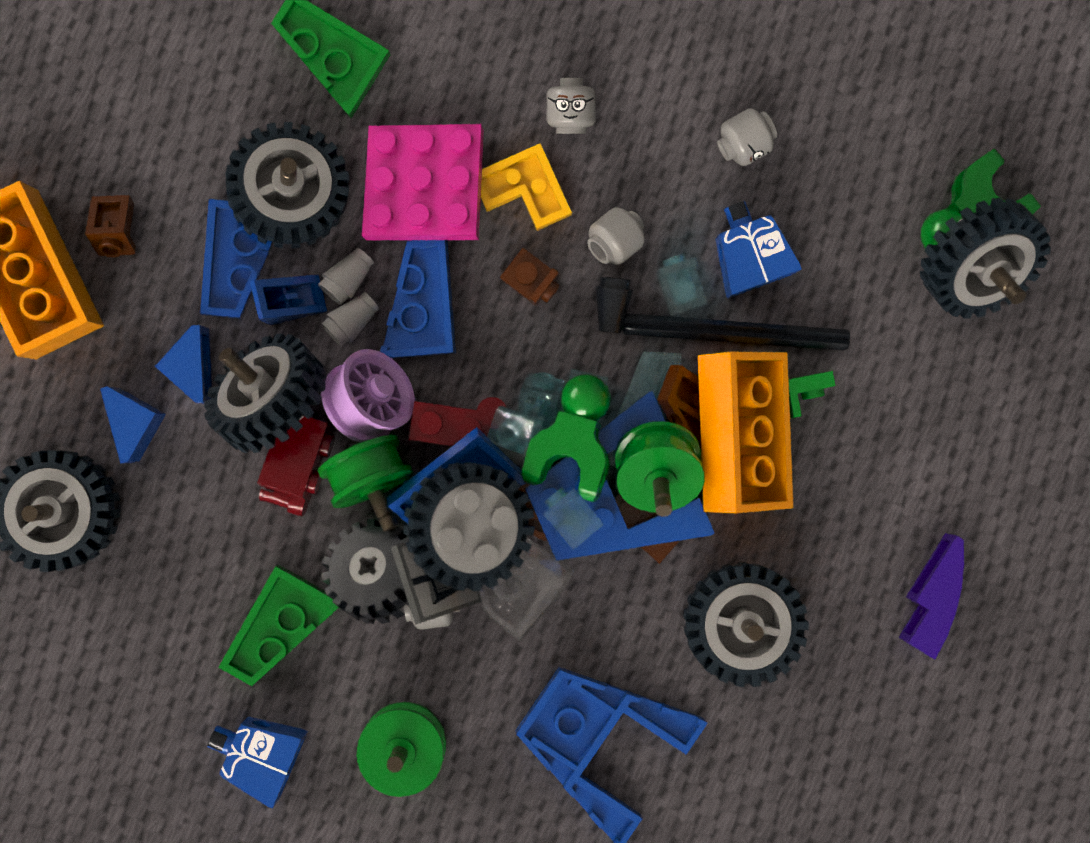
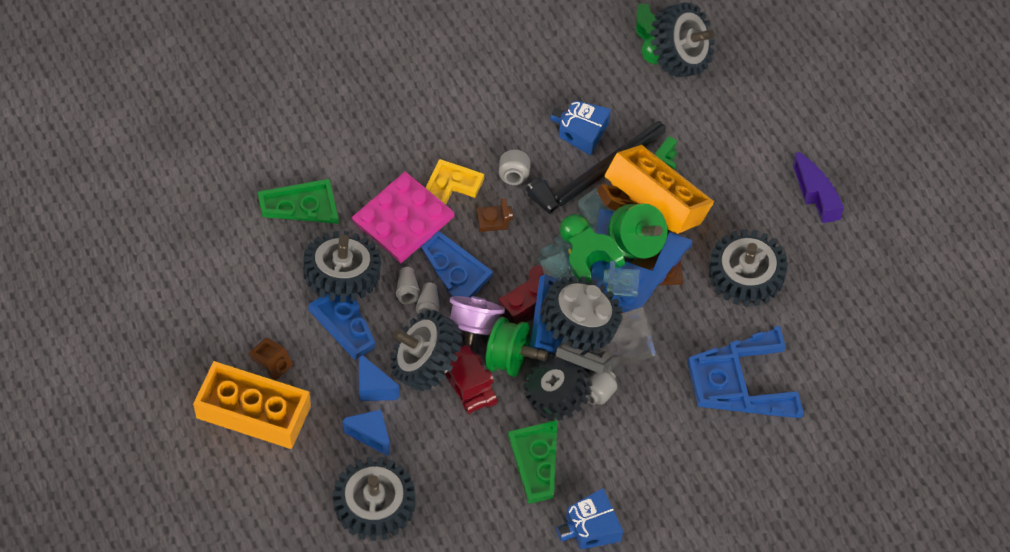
camera: 40 degrees left, 30 degrees down
(287, 298) = (388, 317): blue slope -> none
(401, 749) = (654, 455): green wheel -> none
(571, 106) = (437, 134): light grey head -> none
(681, 285) = (564, 164): clear light blue bracket -> none
(747, 137) = (528, 83): light grey head -> none

